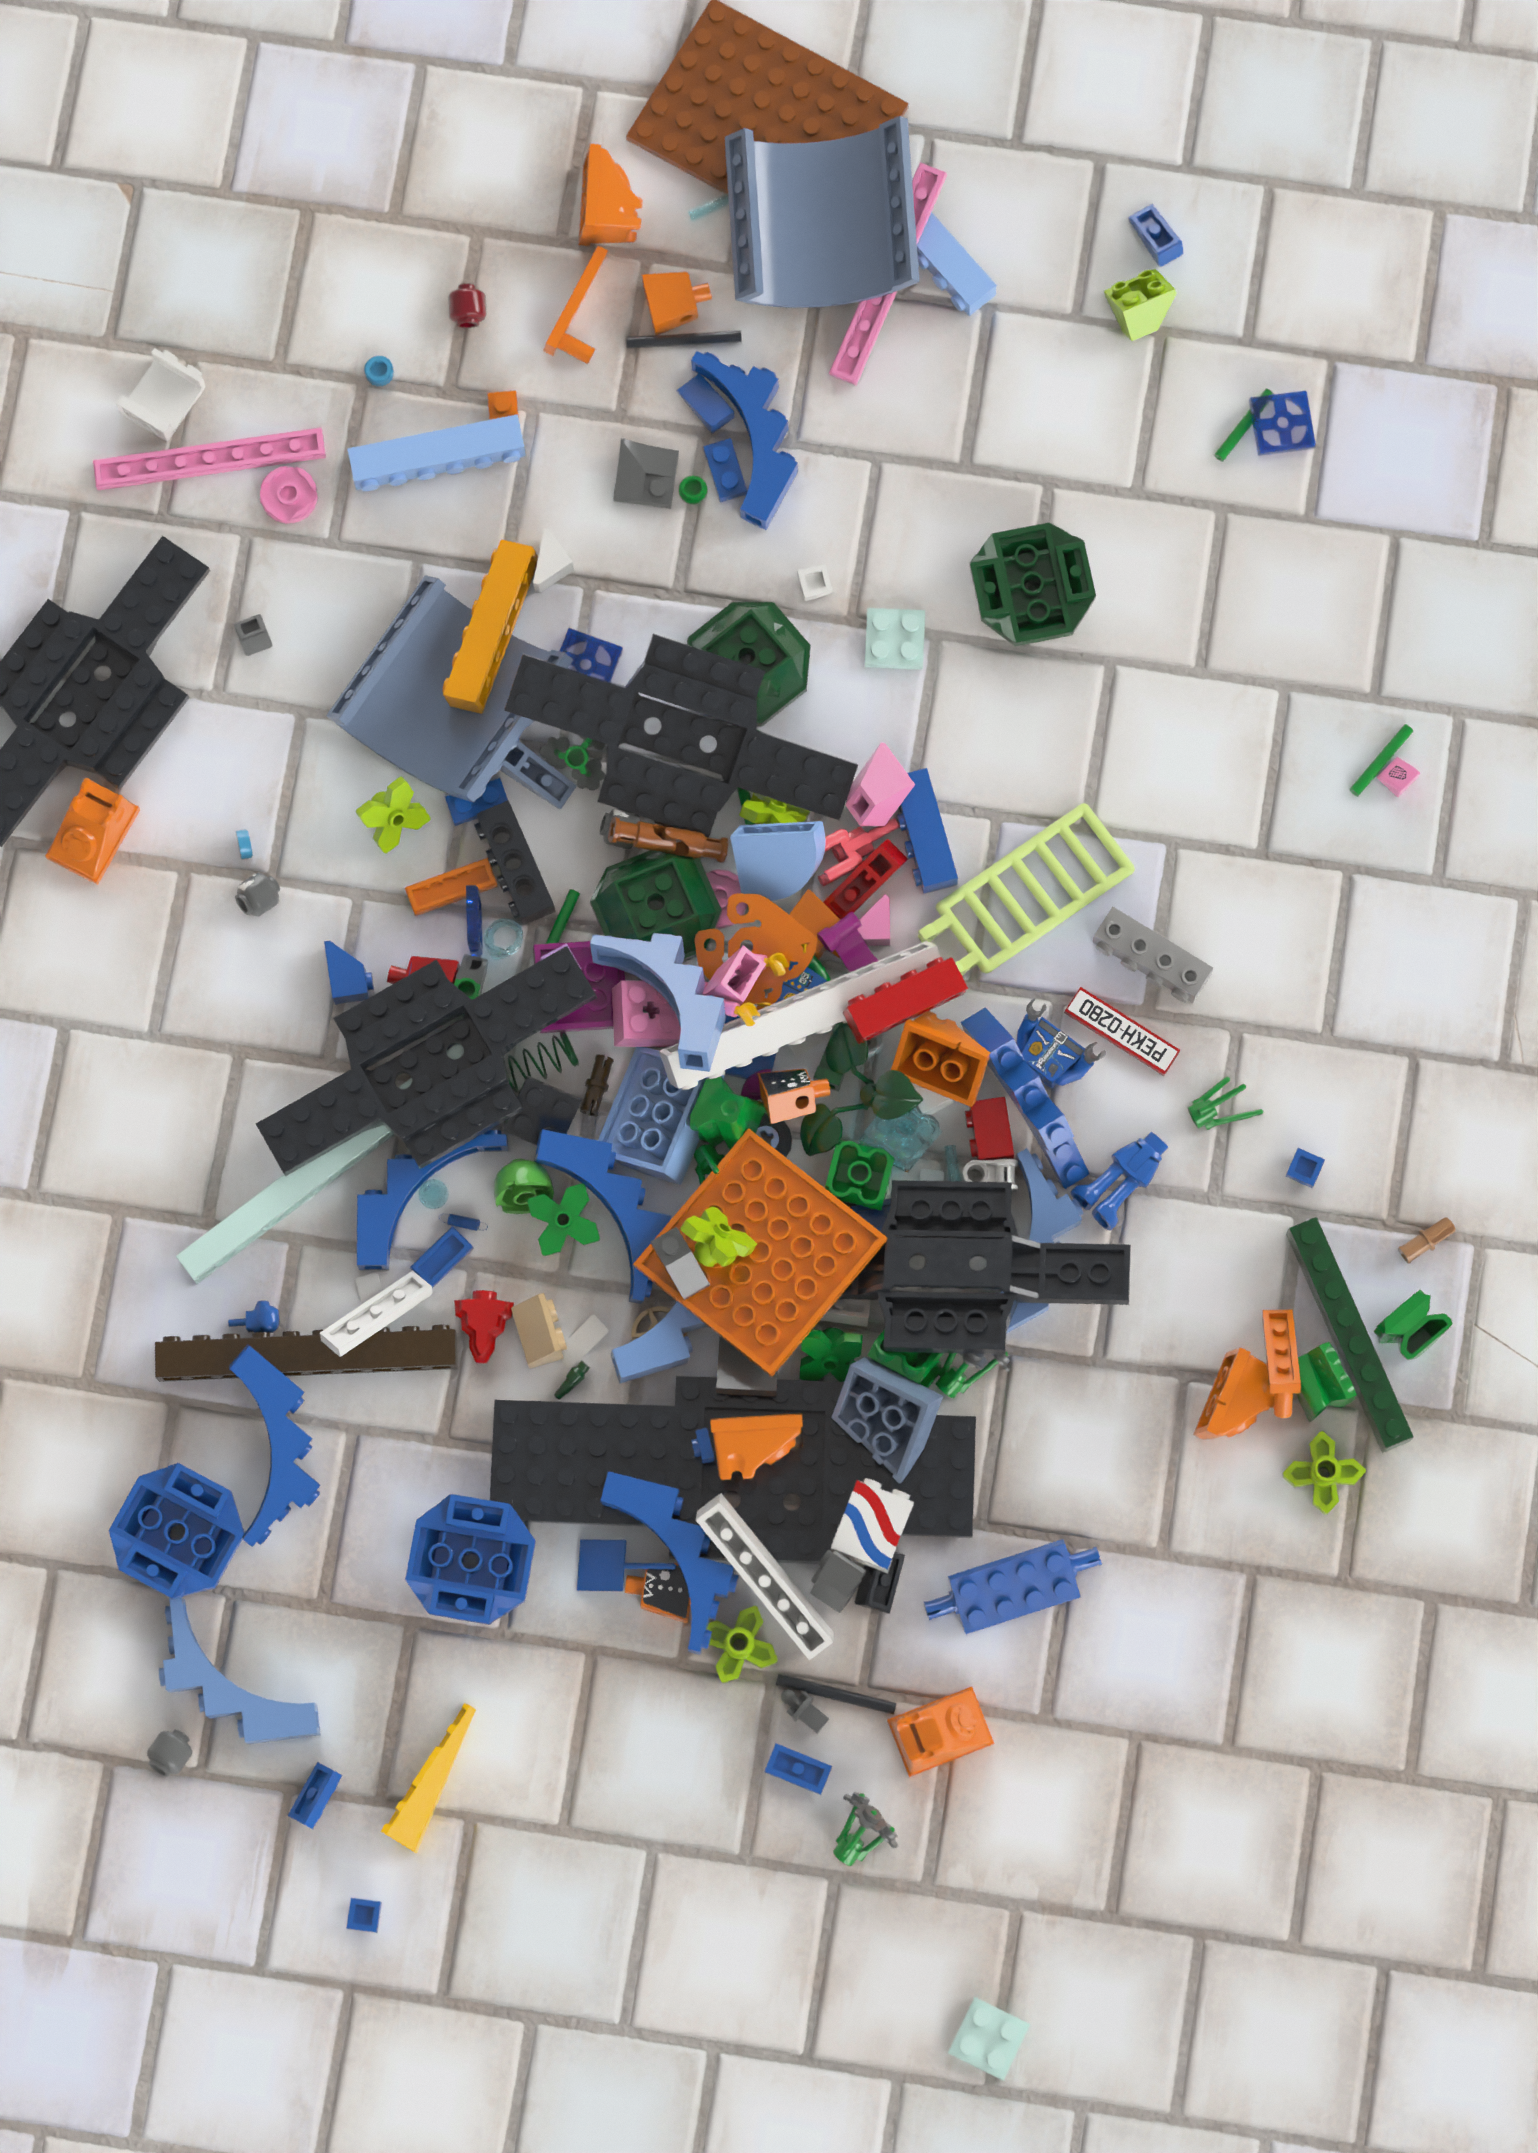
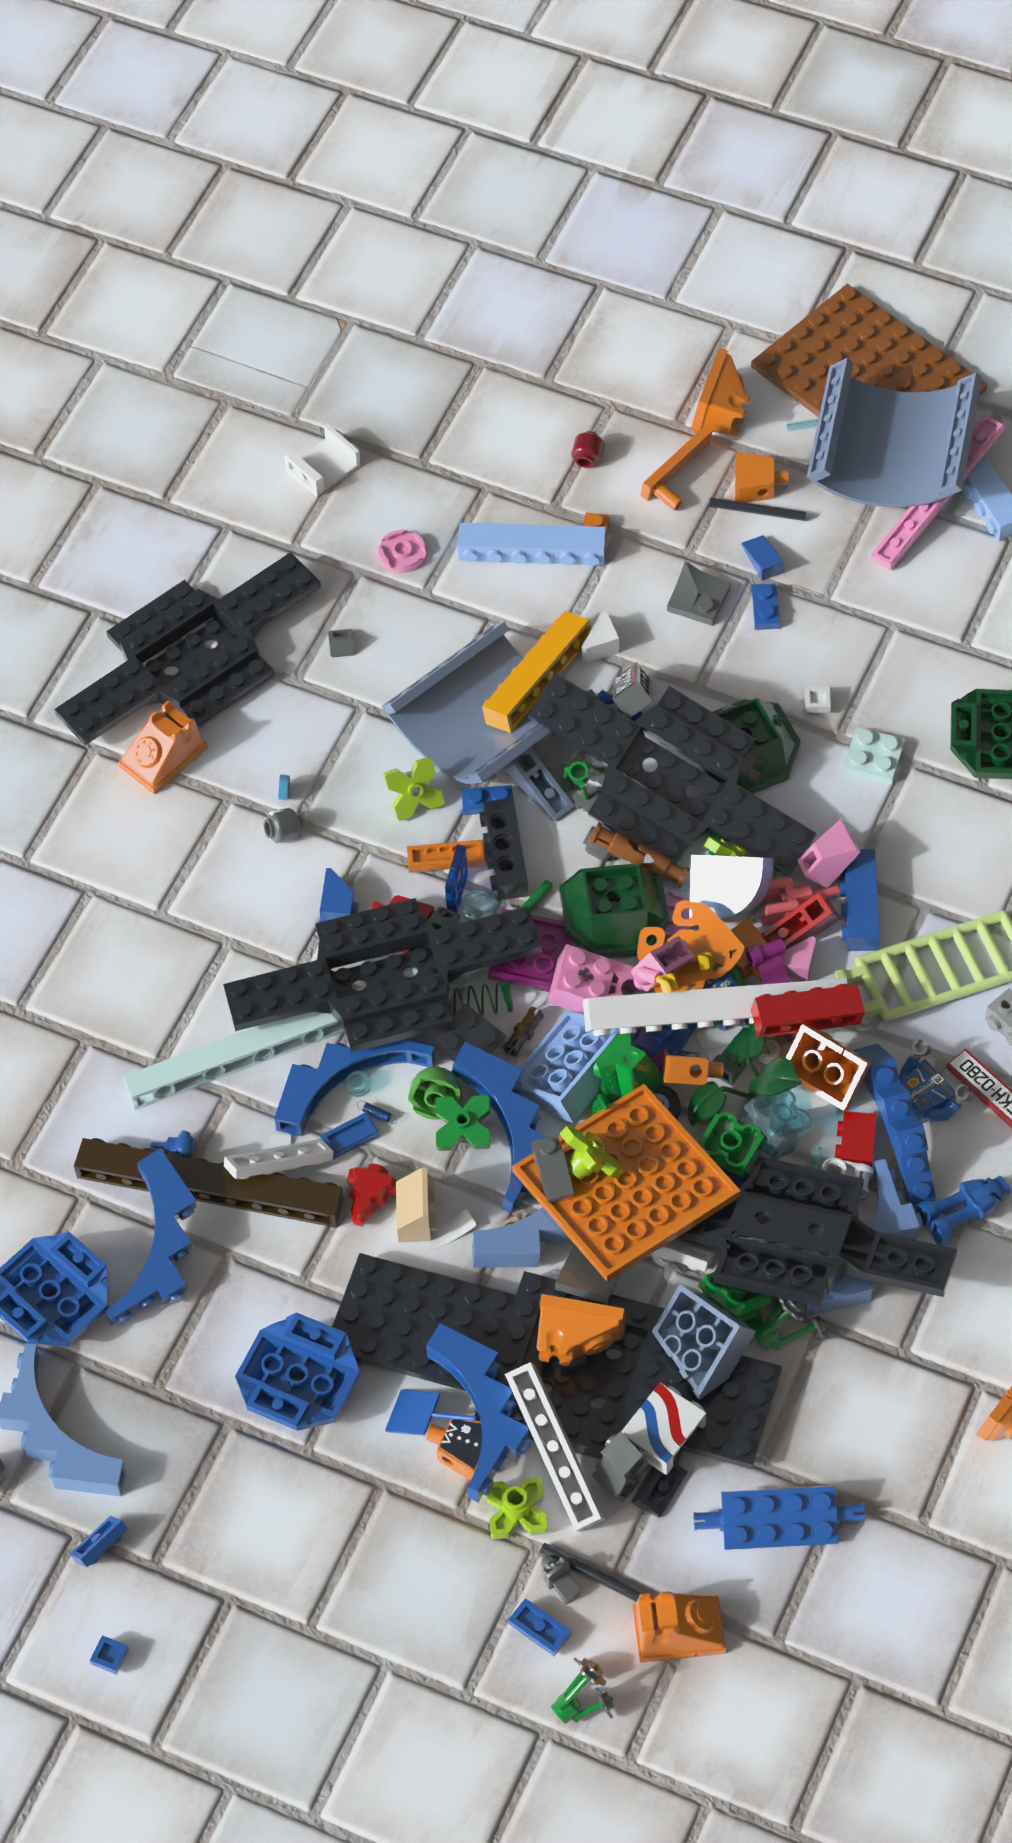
camera: 15 degrees right, 20 degrees down
(209, 459) = (347, 513): bright pink tile -> none
(379, 370) = (503, 481): dark azure tile -> none
(418, 1805) = (192, 1566): yellow wedge -> none
(573, 1378) = (434, 1256): dark green piece -> none
(609, 637) = (632, 691): none -> dark grey brick
(681, 985) = (609, 944): arch -> none
(693, 490) = (734, 613): green plate -> none
(702, 1446) = (530, 1326): blue plate -> none
(766, 430) = (804, 610): blue arch -> none
(829, 1352) = (662, 1280): green plant -> none

